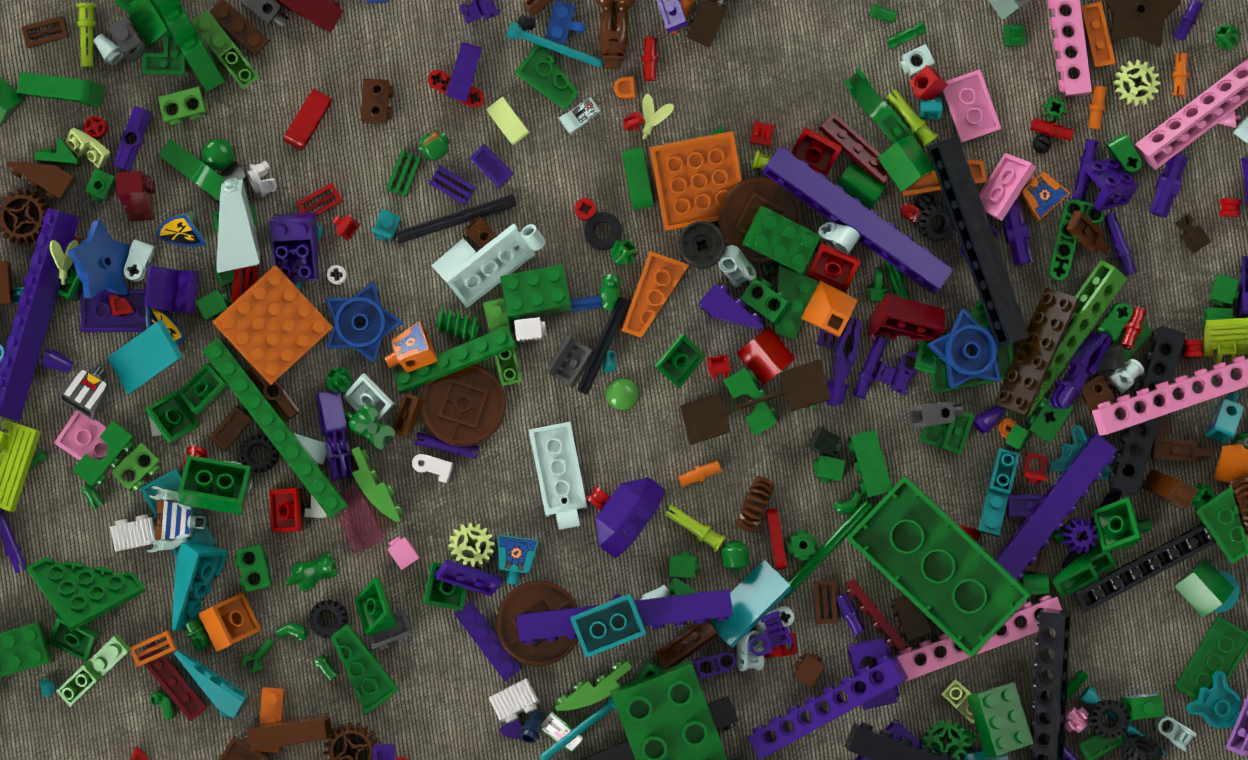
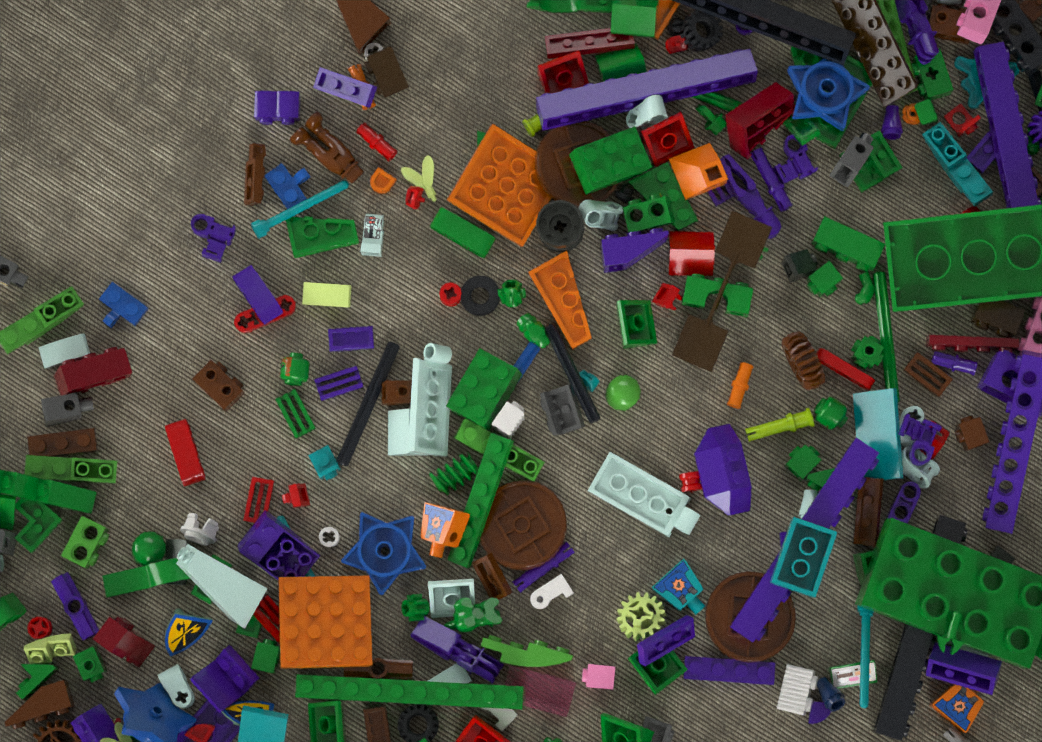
camera: 50 degrees left, 5 degrees down
(526, 23) = (263, 213): black piece -> none
(587, 694) = (841, 626): bright green slope -> none
(762, 133) = (512, 106): red tile -> none

